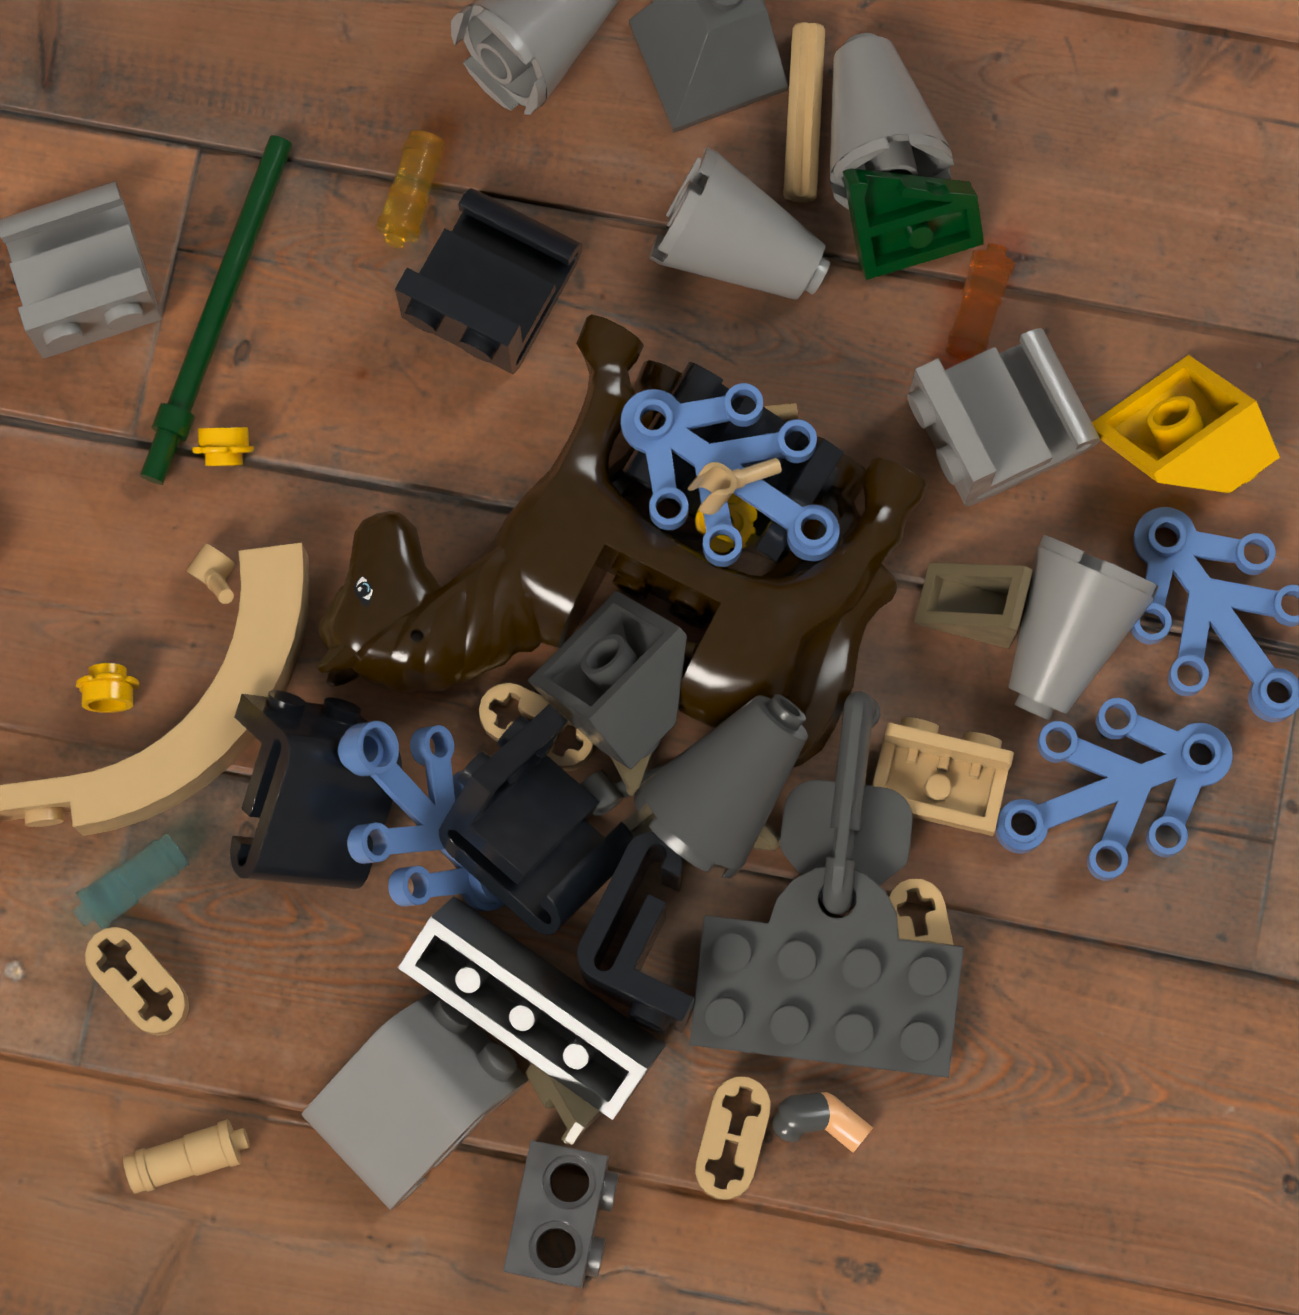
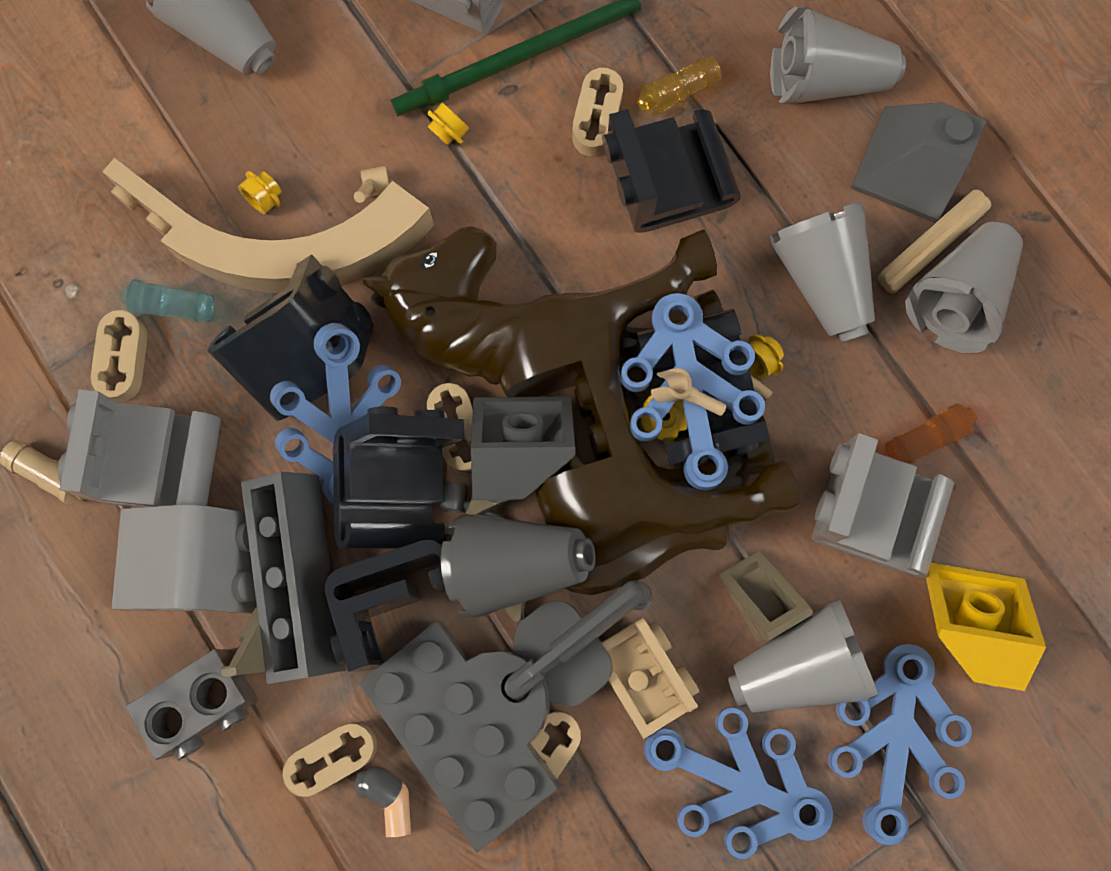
camera: 45 degrees right, 0 degrees up
(271, 1041) = (137, 453): none -> light grey piece
(345, 298) = (588, 109): none -> tan beam
(758, 371) = (767, 356): none -> yellow plate
(909, 219) = (937, 350): dark green wing -> none

